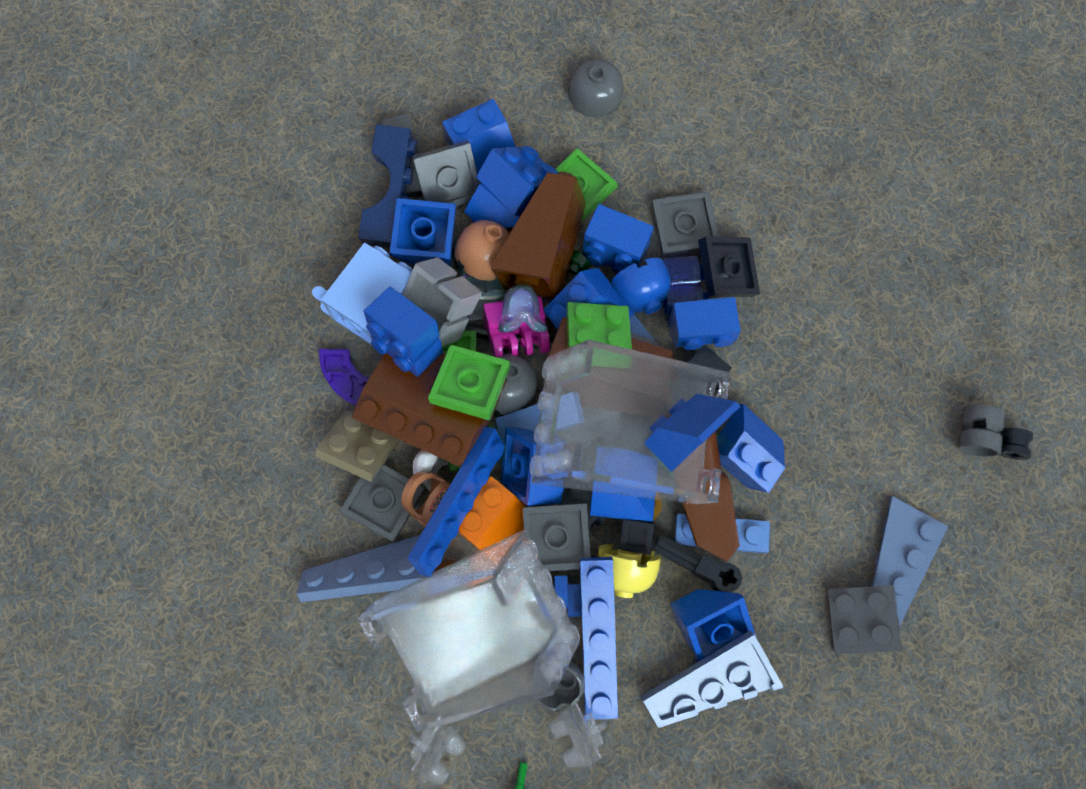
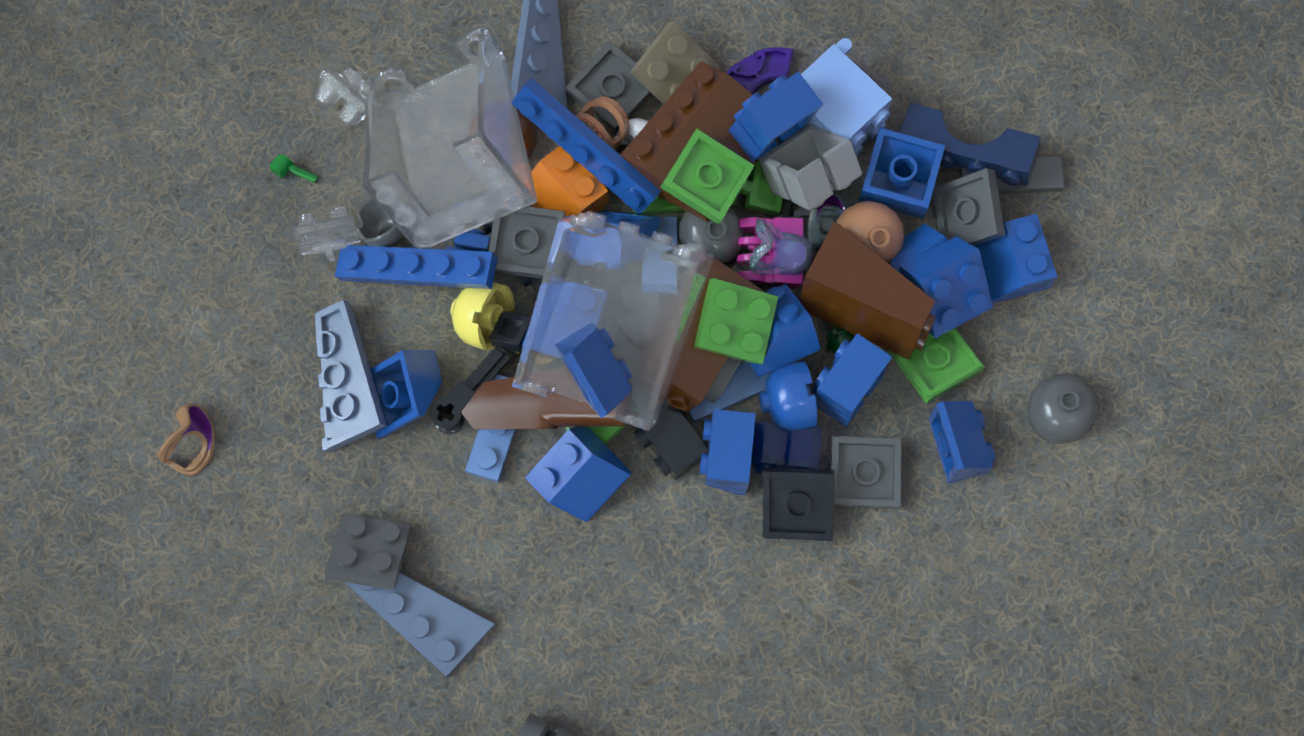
camera: 105 degrees right, 0 degrees up
(645, 154) = (960, 440): none -> blue slope

